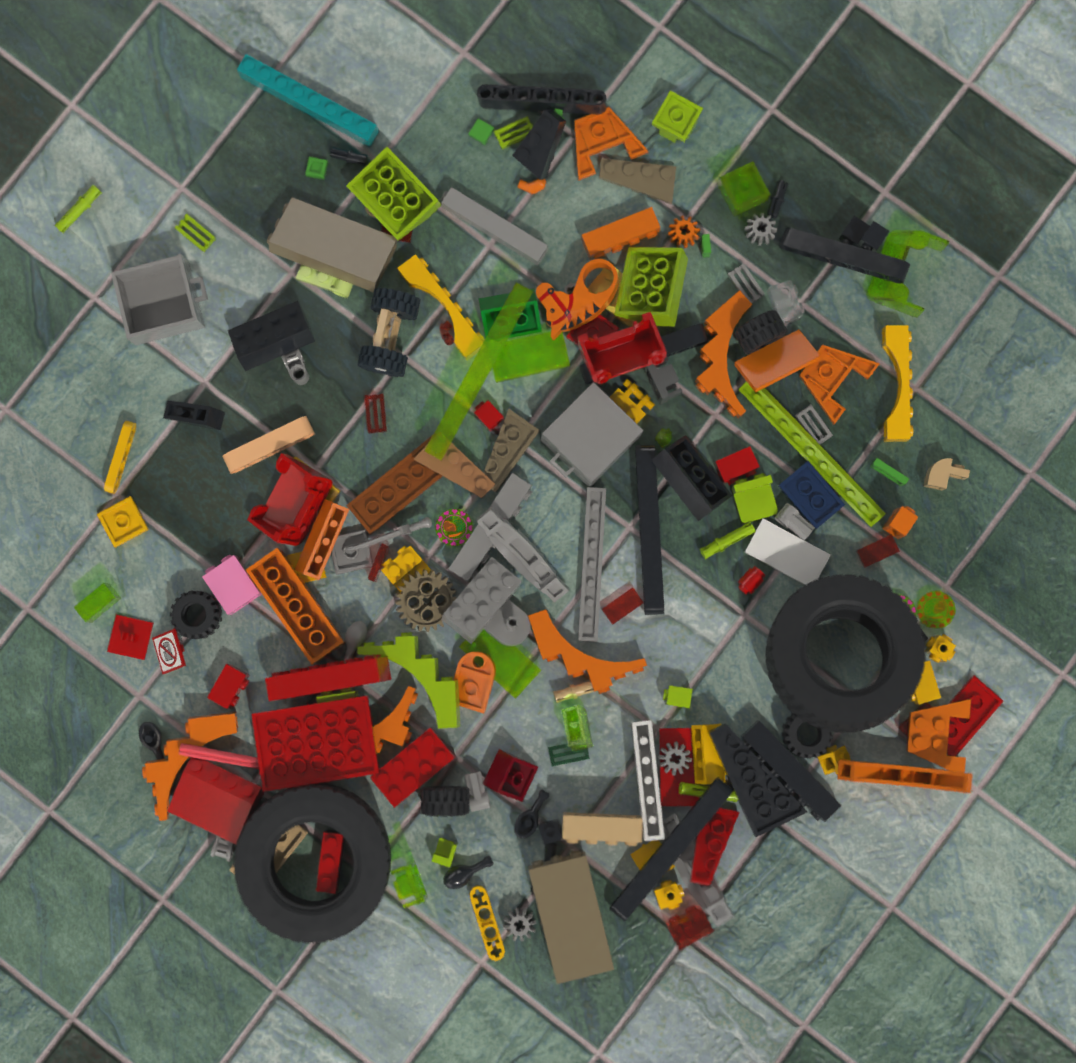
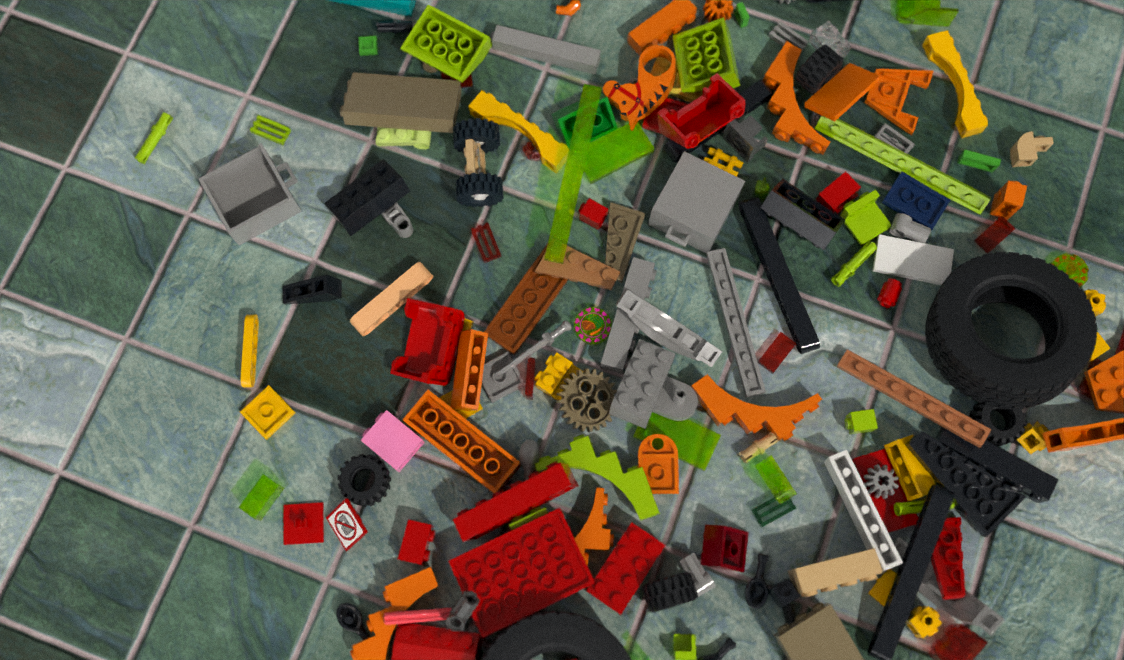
camera: 20 degrees left, 10 degrees down
(251, 763) = (462, 610): none -> dark grey piece
(733, 689) = (914, 398): none -> nougat plate

